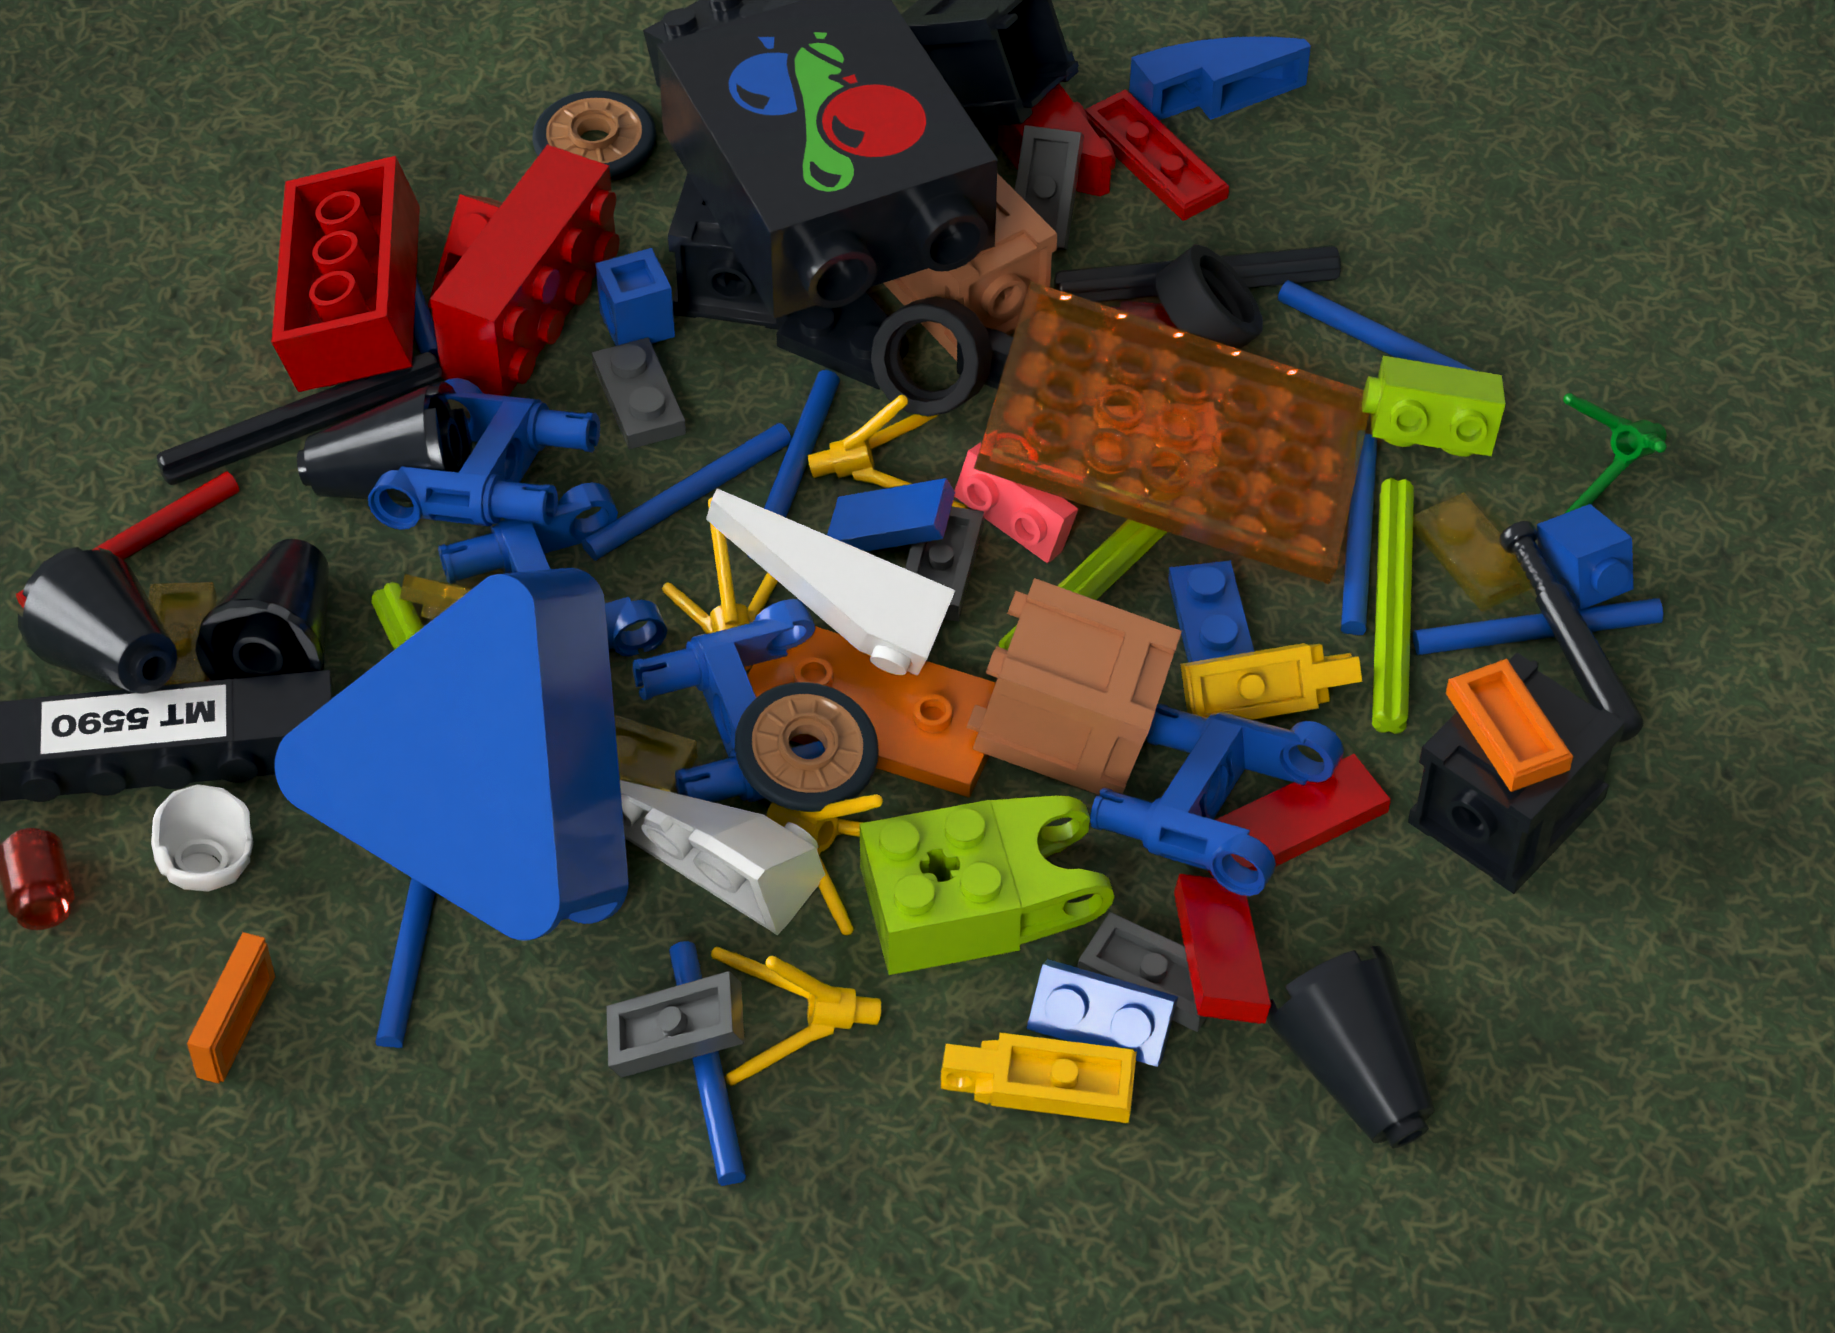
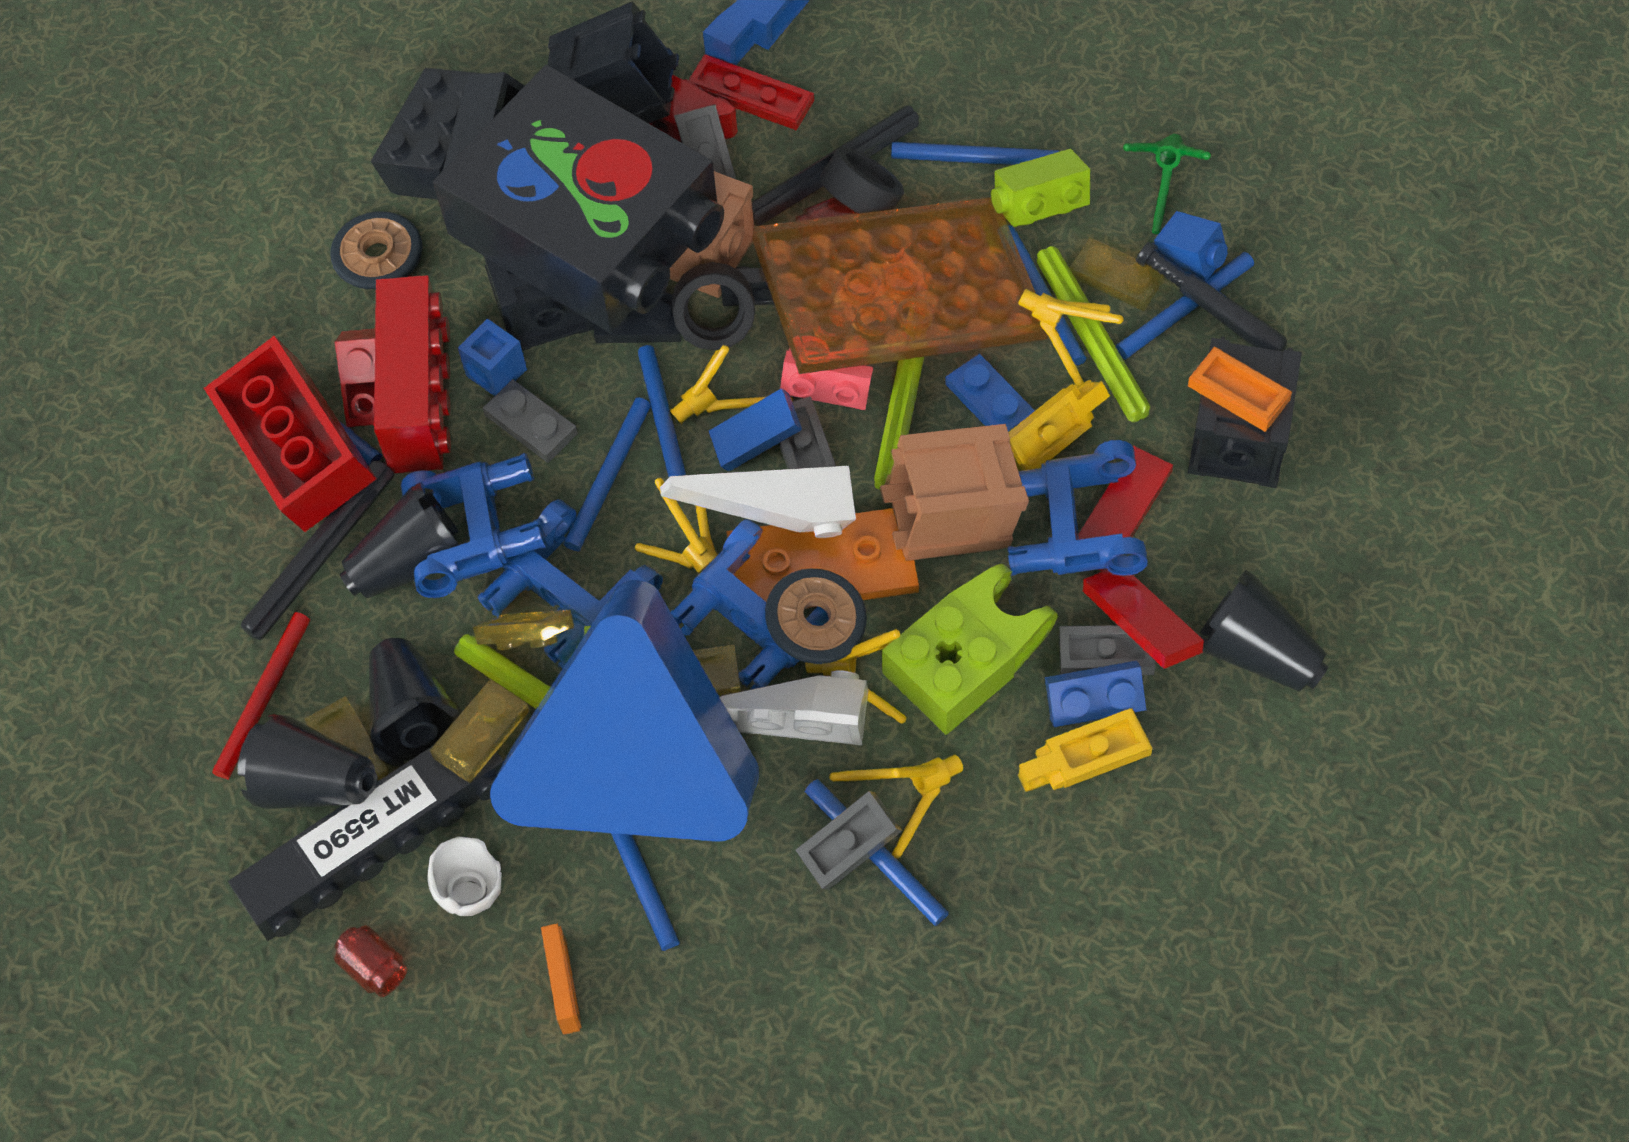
camera: 25 degrees left, 10 degrees up
(306, 683) = (479, 730): none -> clear yellow plate
(1345, 548) = (1049, 312): none -> yellow plant

